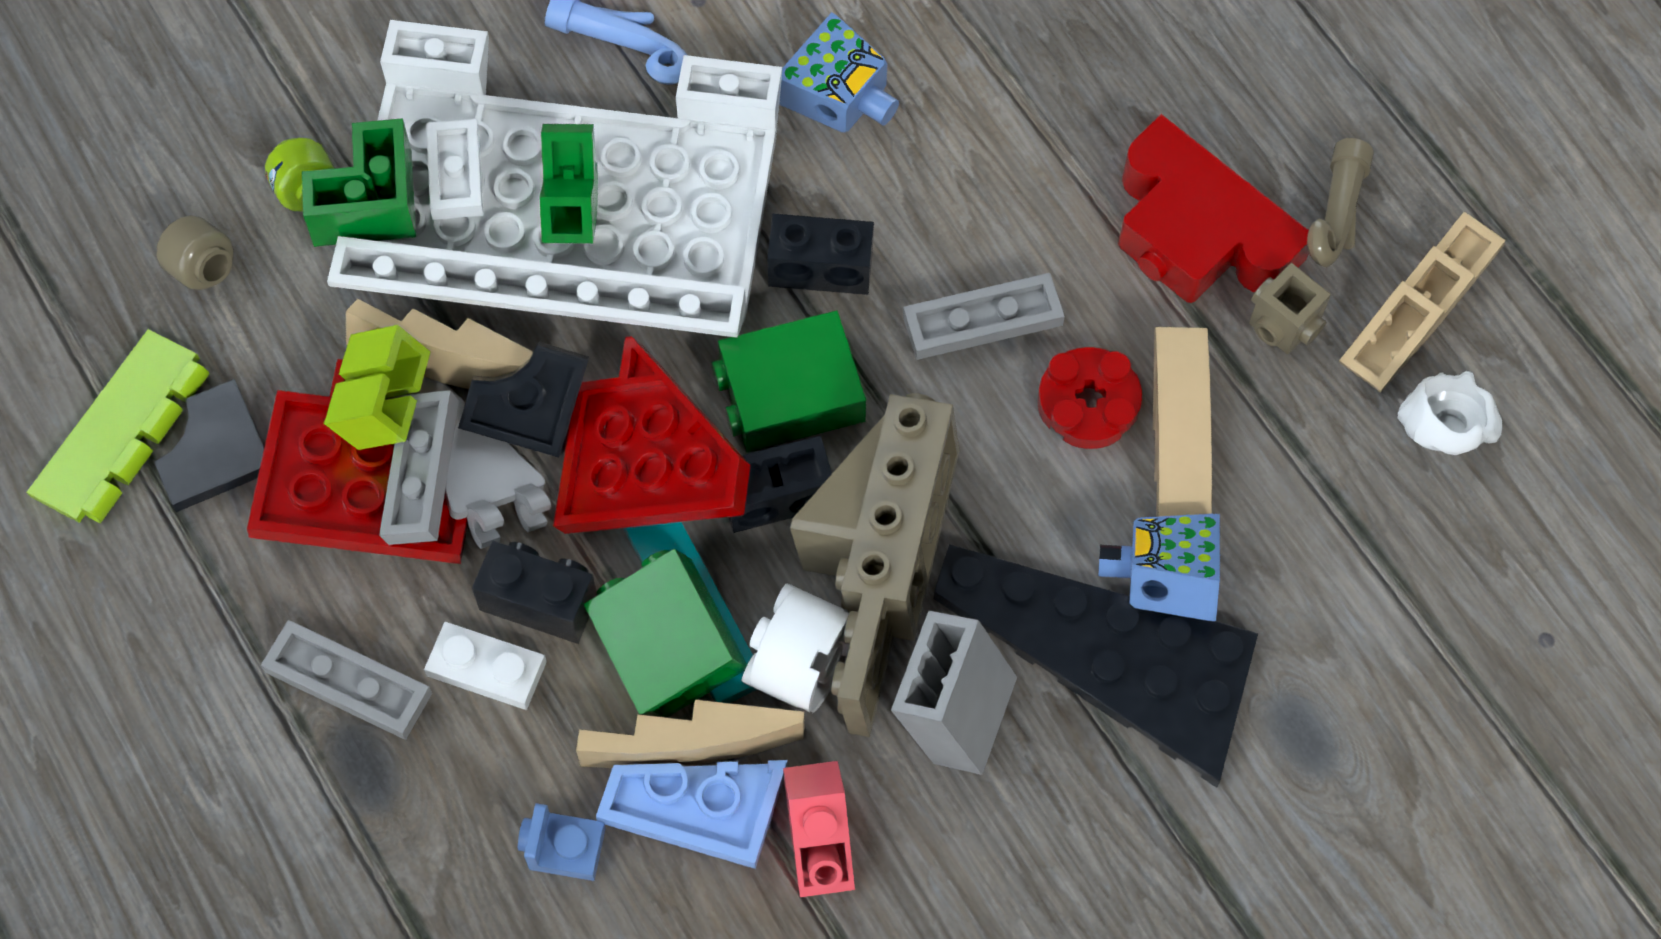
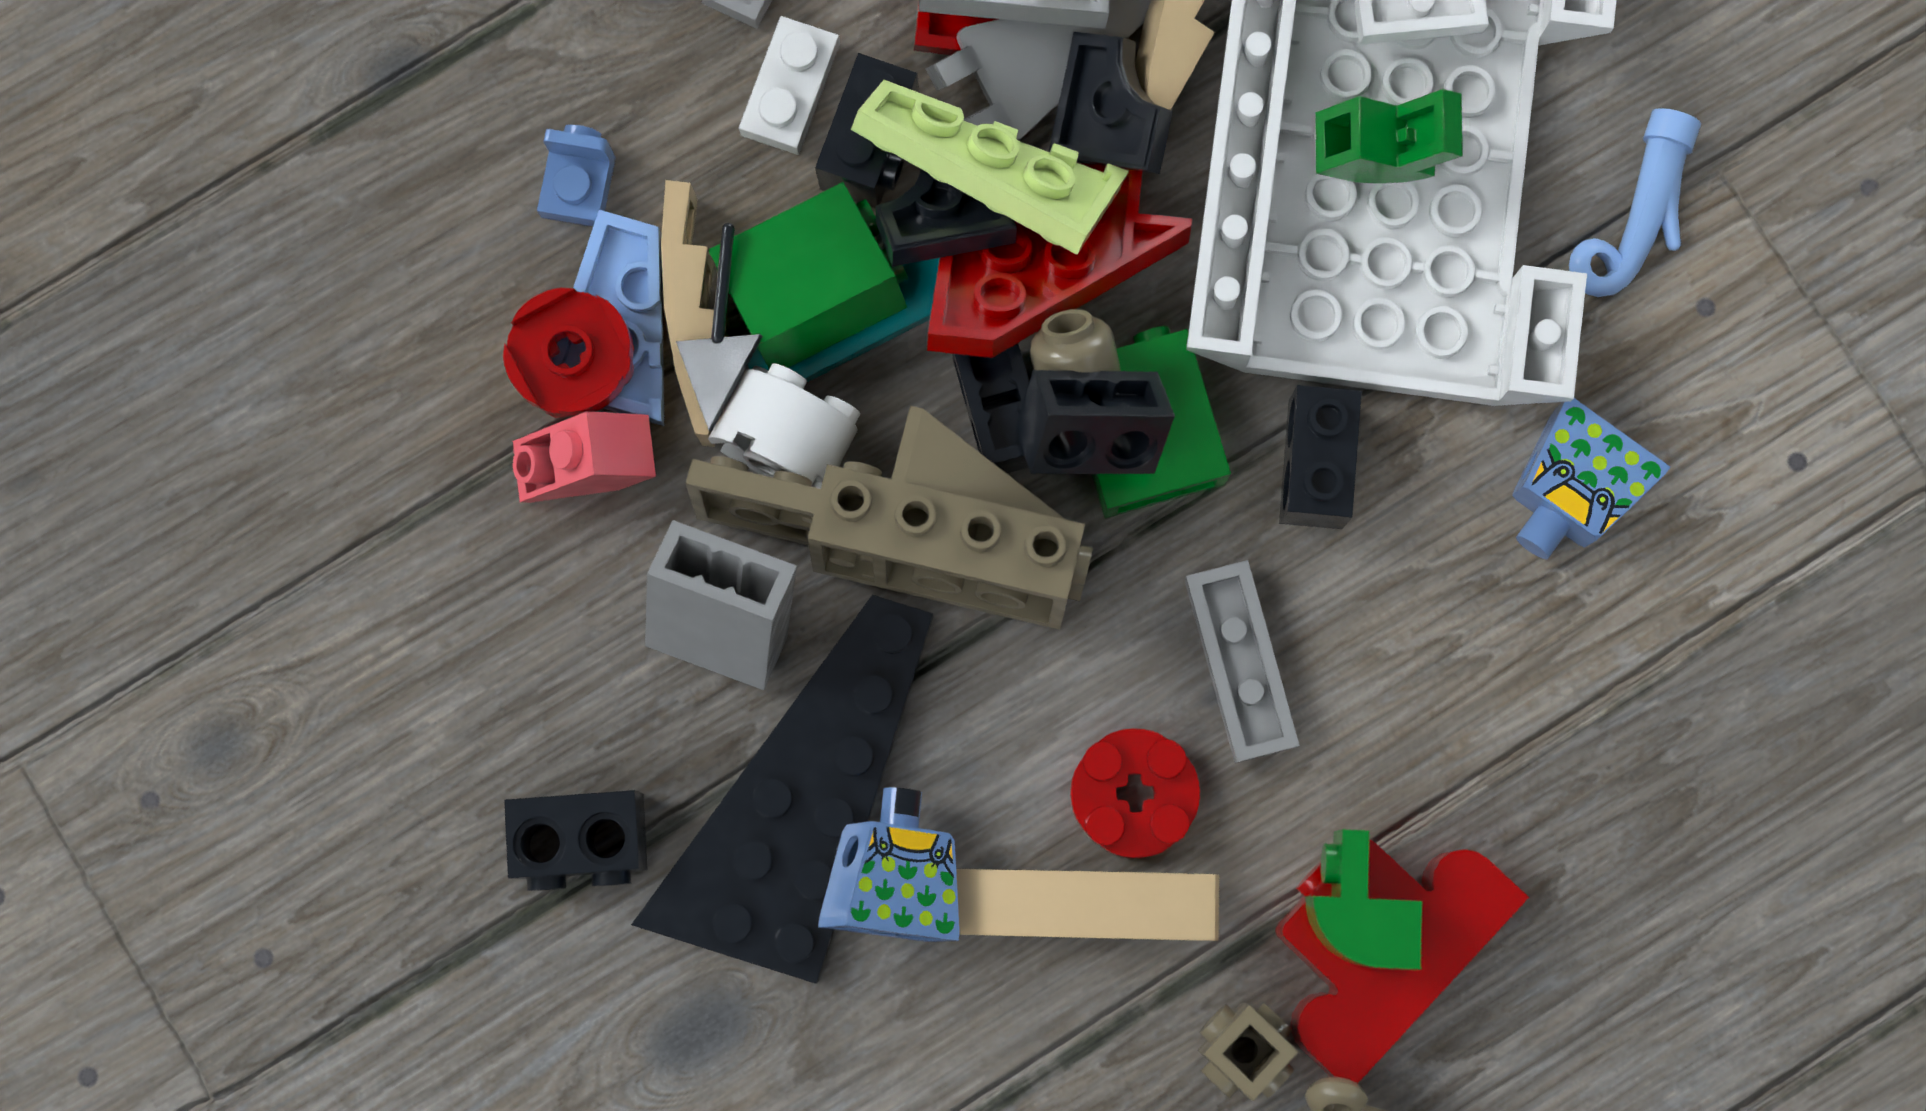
camera: 95 degrees right, 15 degrees up
(591, 458) = (988, 163): none -> yellowish green wing
(612, 513) = (939, 222): none -> black tile
(722, 862) = (533, 343): none -> red plate
(745, 695) = (718, 361): none -> piece
(750, 408) = (1074, 343): none -> dark tan head
(805, 388) = (1094, 422): none -> black brick
(1136, 825) = (576, 822): none -> black brick
(1186, 222) = (1360, 928): none -> green brick

